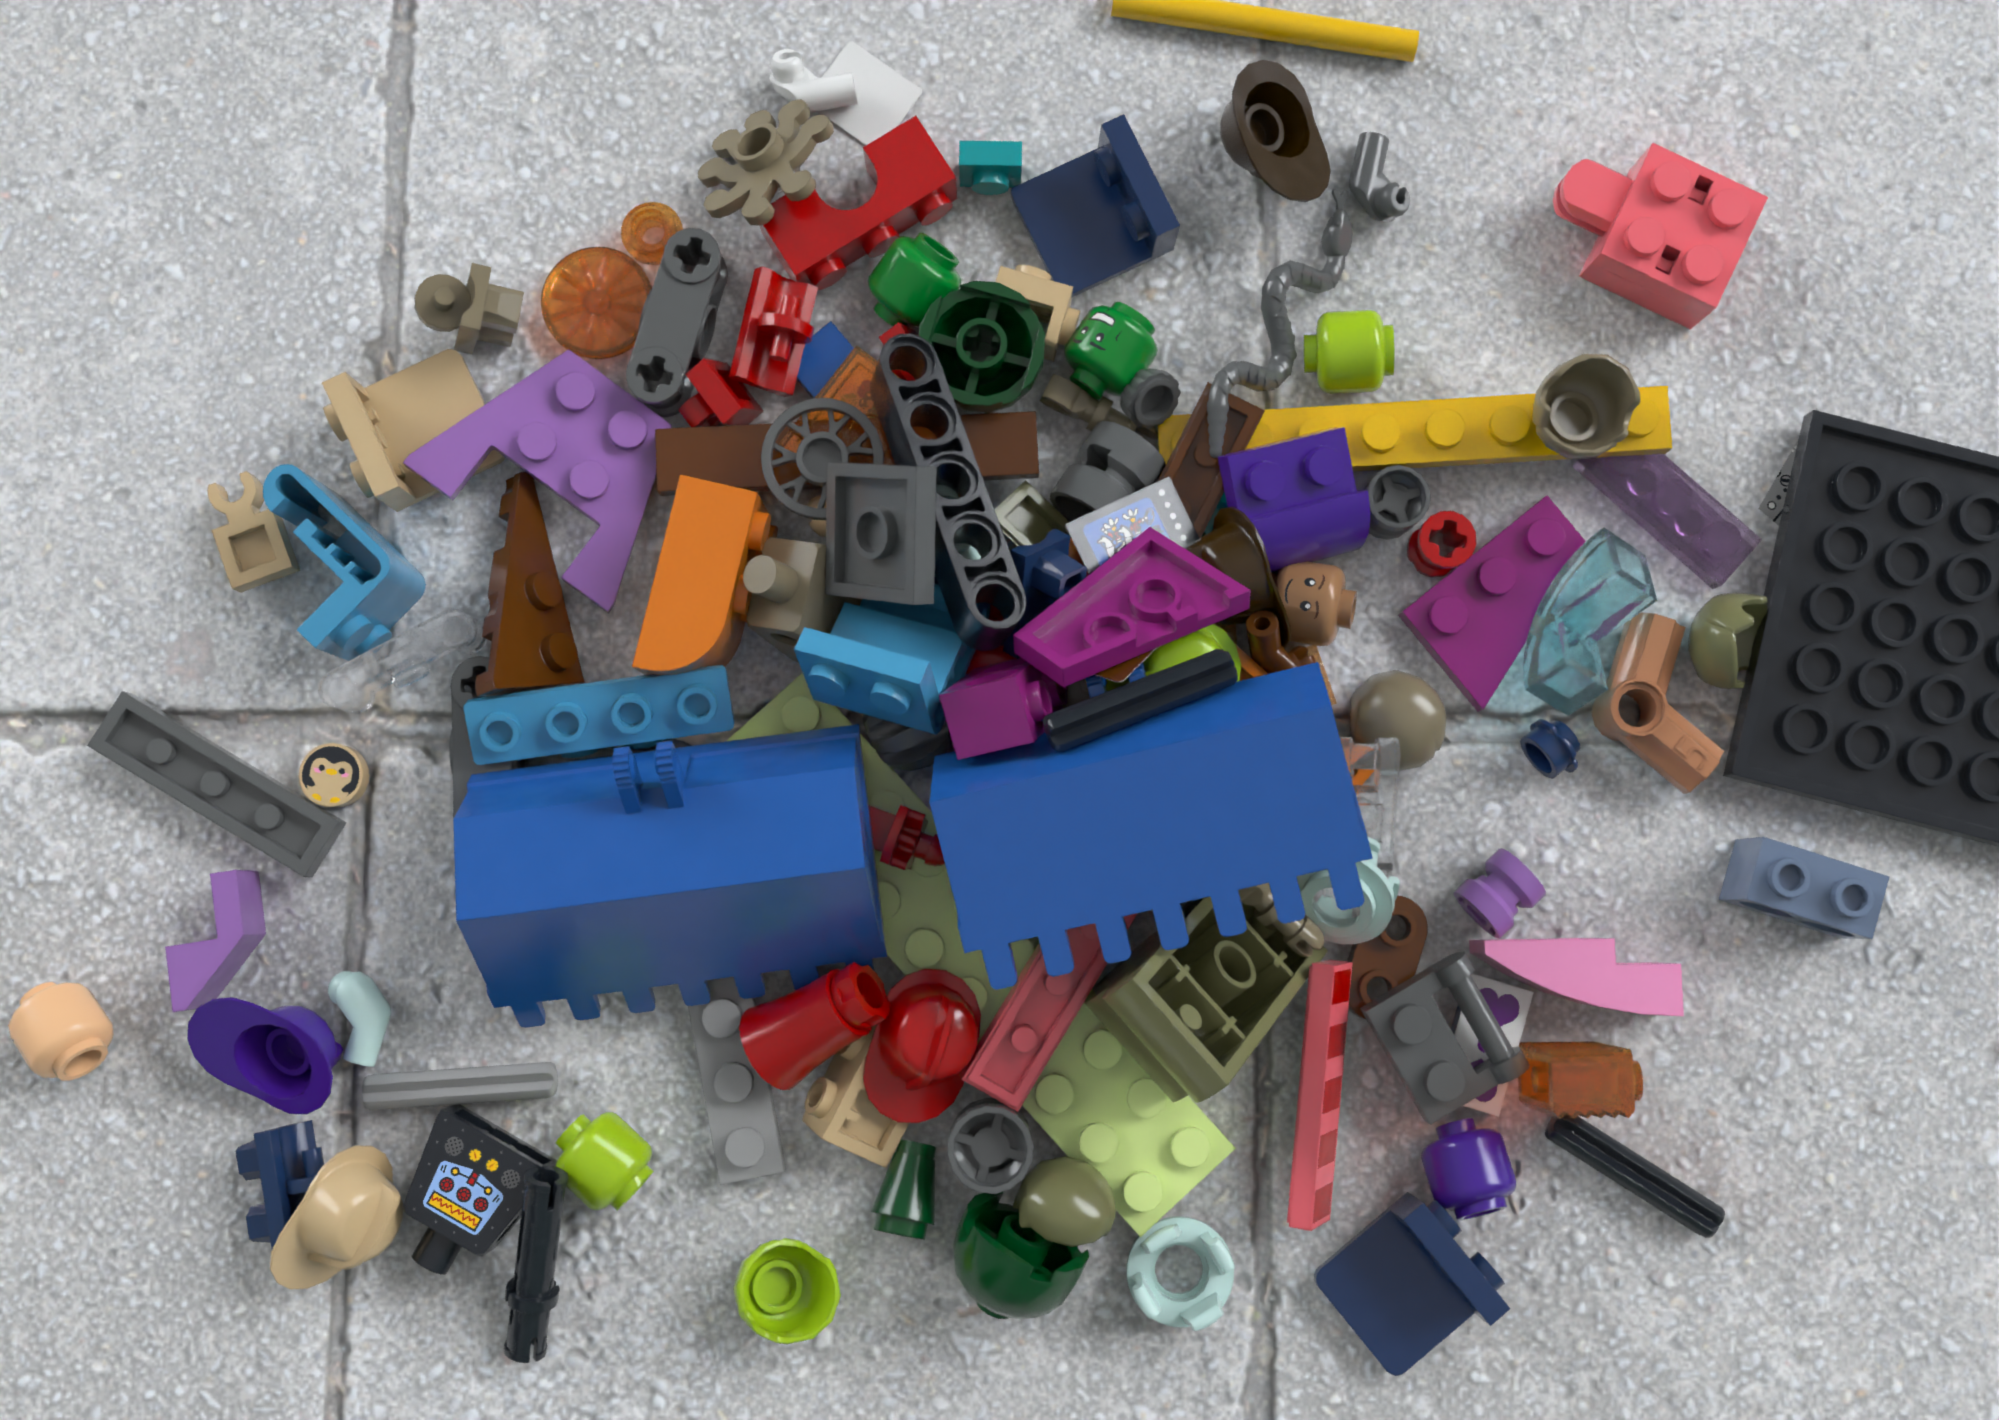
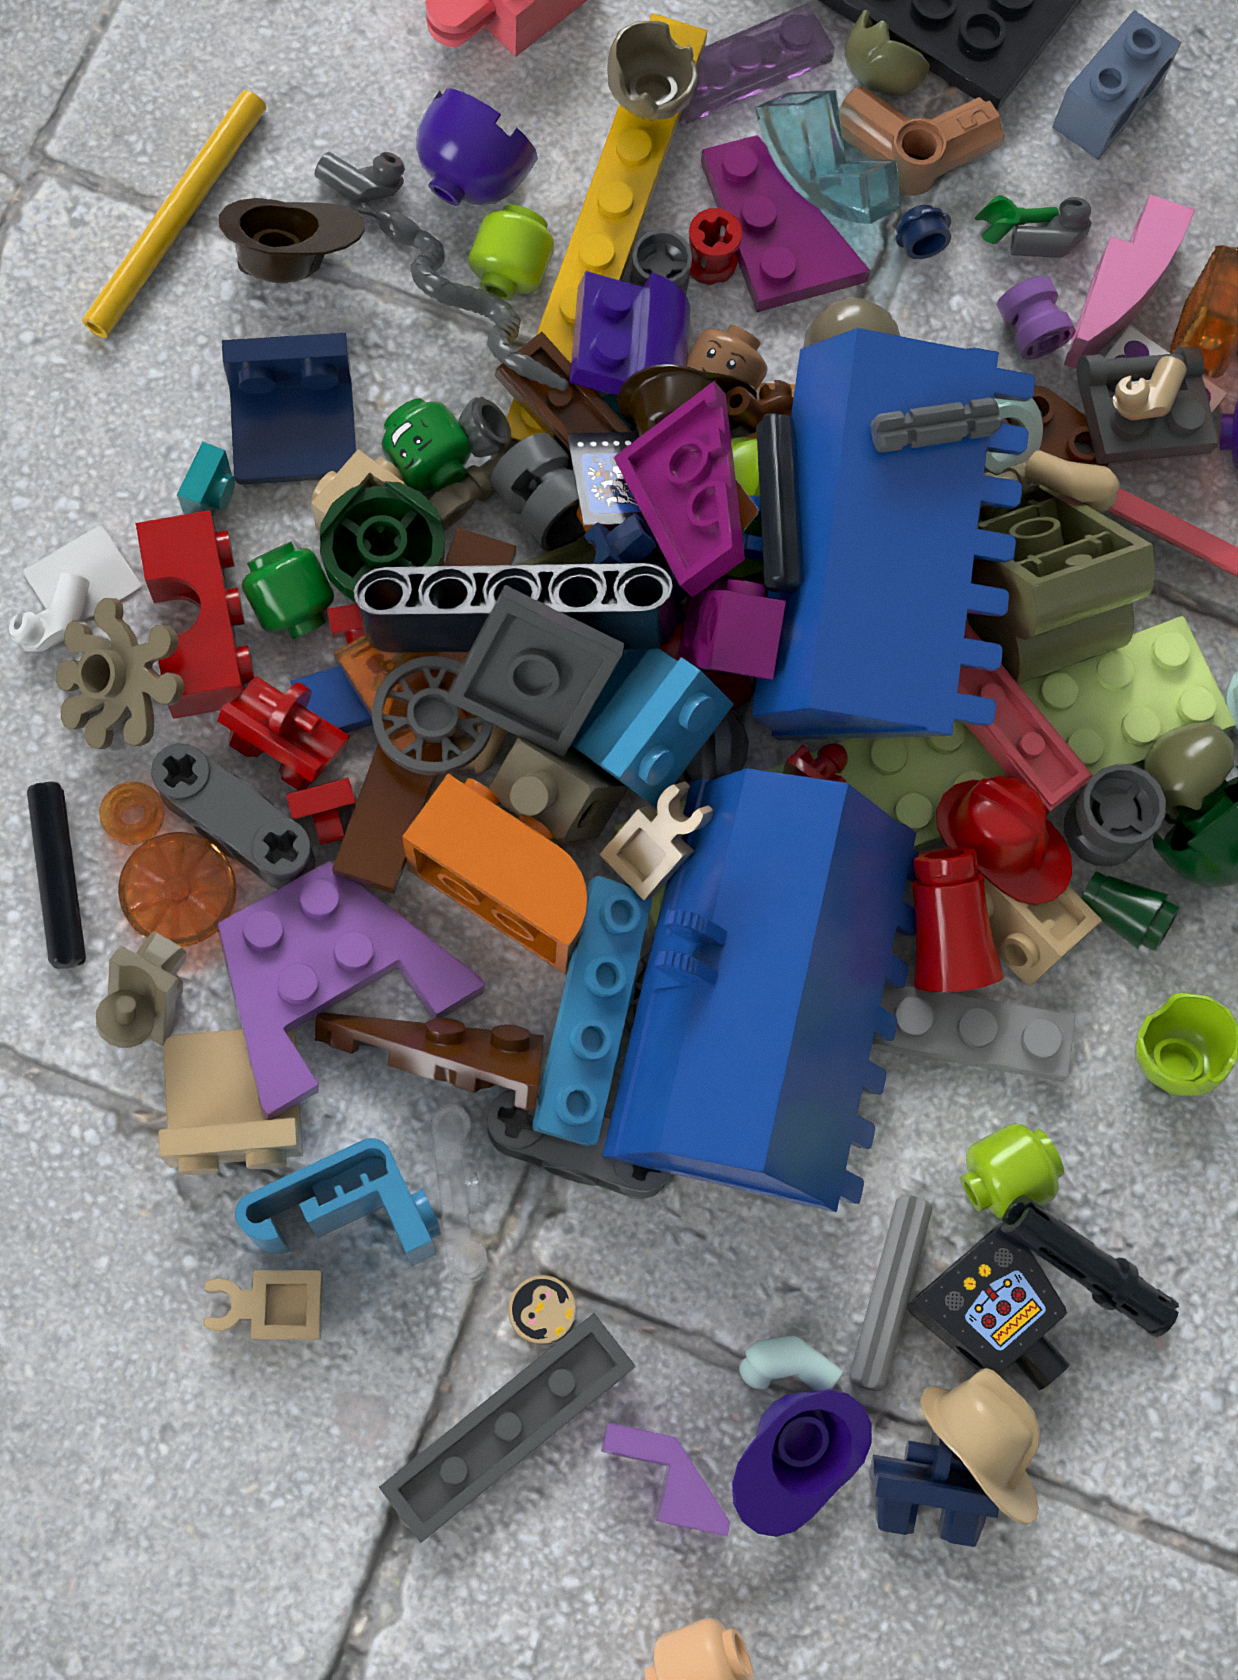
camera: 75 degrees left, 10 degrees down
(570, 191) = (56, 875): none -> black axle
(774, 710) = (651, 844): none -> tan plate
(1260, 821) = (935, 424): none -> dark grey axle
(1308, 988) = (1083, 482): none -> tan arm
(1431, 269) = (469, 152): none -> dark purple cylinder
(1440, 1040) = (1151, 398): none -> tan arm
(1606, 827) = (1004, 215): none -> green hand
(1608, 887) = (1060, 234): none -> dark grey arm

